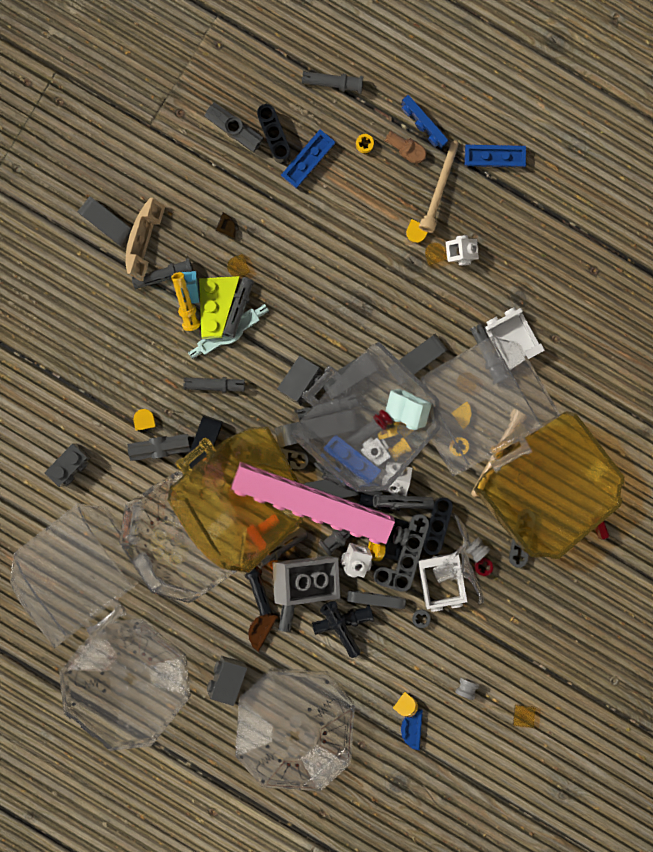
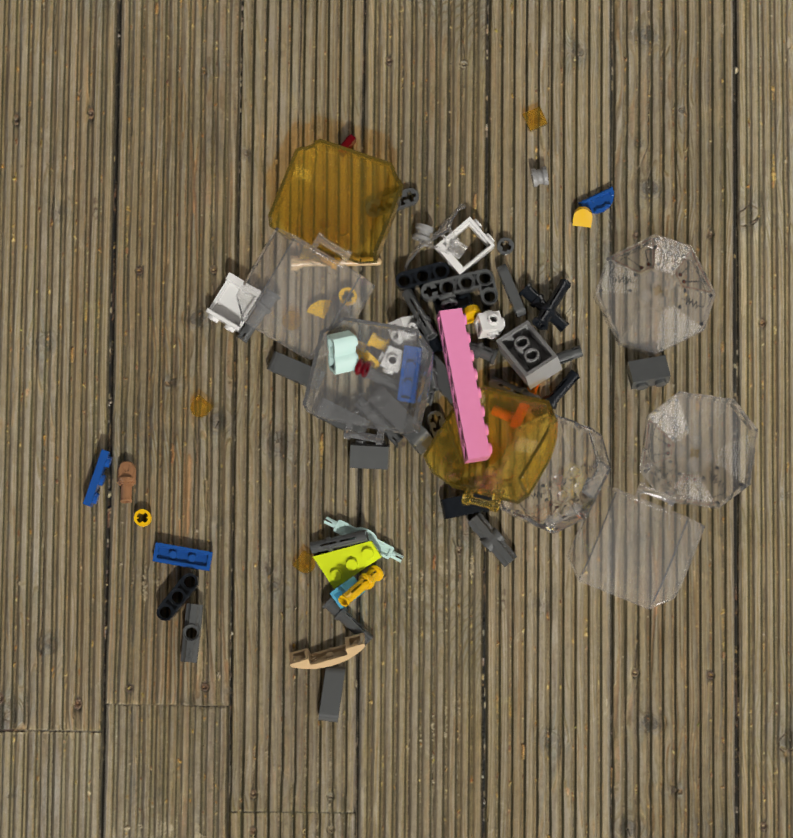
camera: 125 degrees left, 5 degrees down
(67, 465) = (550, 605): dark grey brick -> none
(144, 419) = (477, 566): yellow tile -> none
(214, 384) = (413, 524): dark grey pin -> none
(226, 226) = (277, 592): dark brown tile -> none
(260, 629) = (591, 370): reddish brown tile -> none
(342, 82) = (102, 565): dark grey pin -> none
(414, 233) = (191, 433): yellow tile -> none
(428, 222) = (178, 426): tan piece -> none
(462, 250) = (185, 385): white brick -> none
(487, 571) = (436, 215): dark red bush -> none
(495, 156) = (91, 404): blue plate -> none

